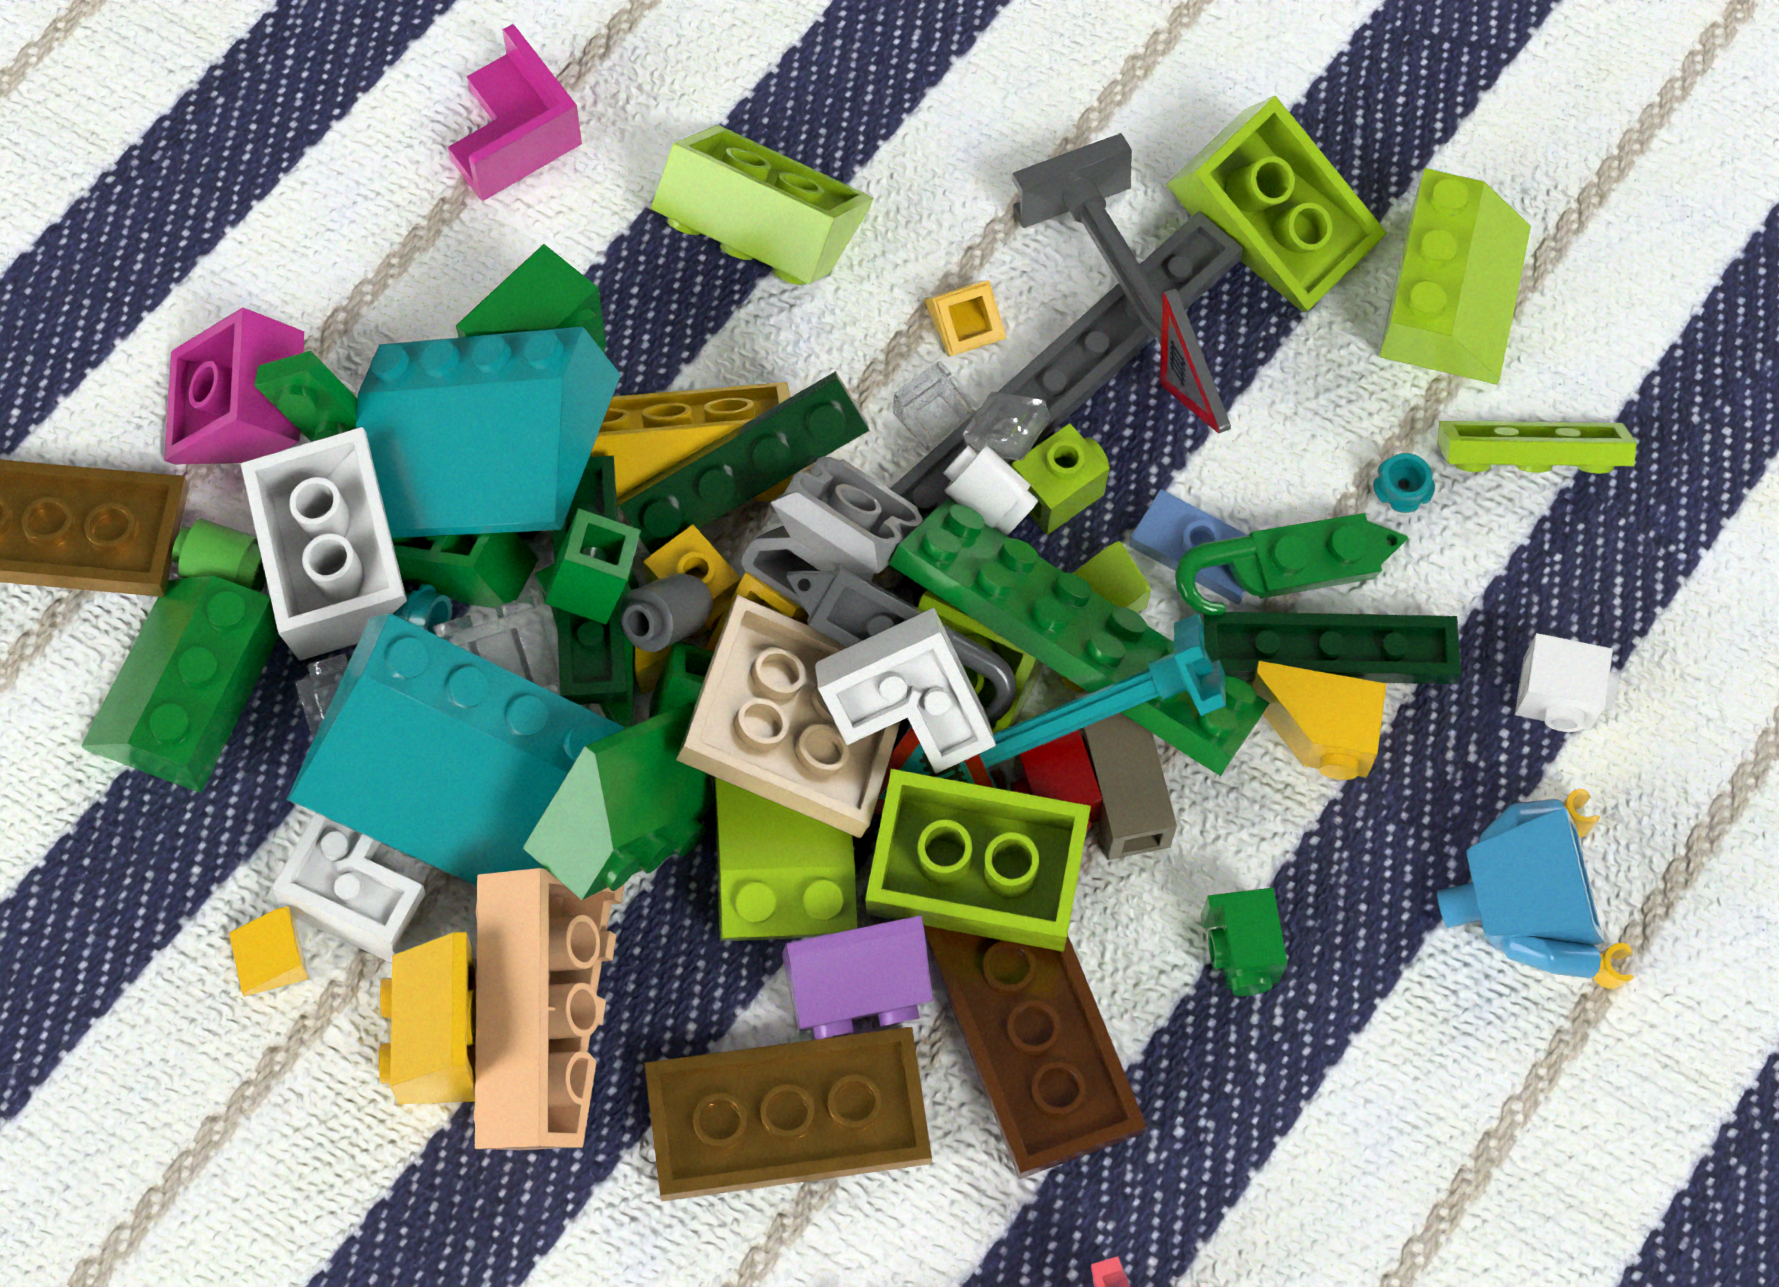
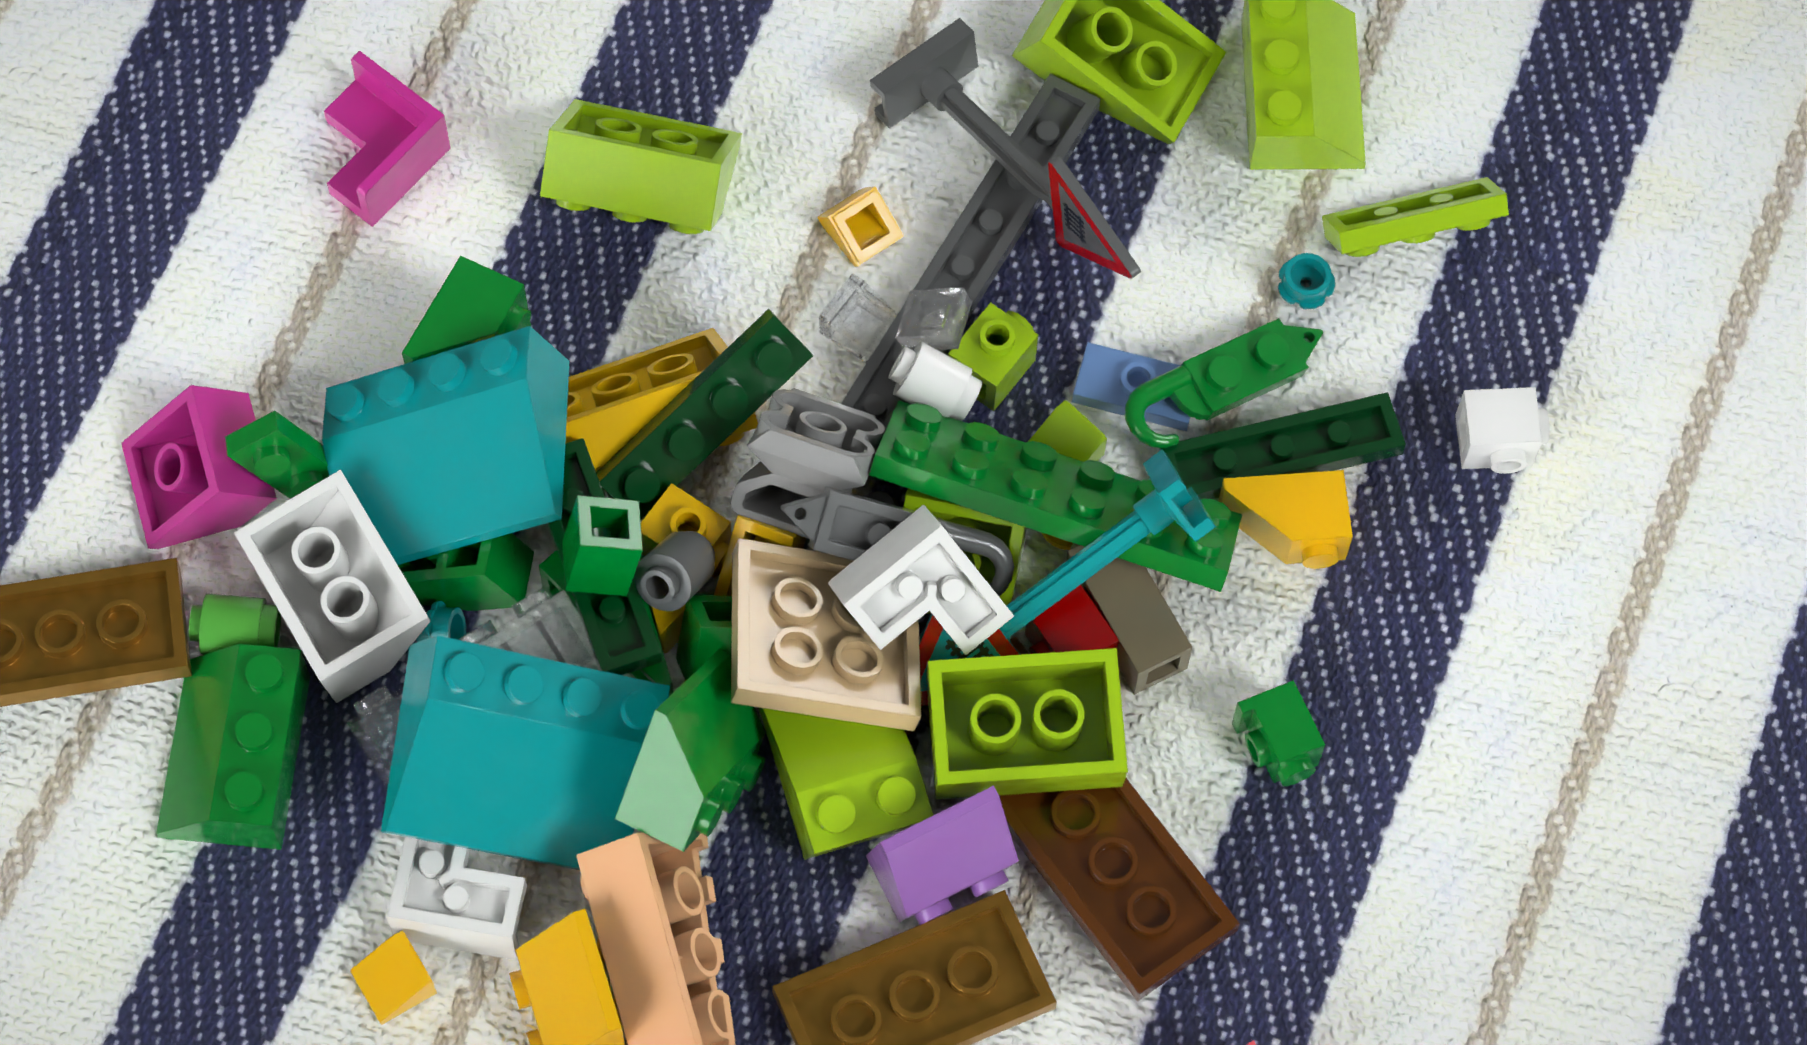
camera: 15 degrees left, 0 degrees up
(1537, 892) = (1526, 623): dark azure torso -> none

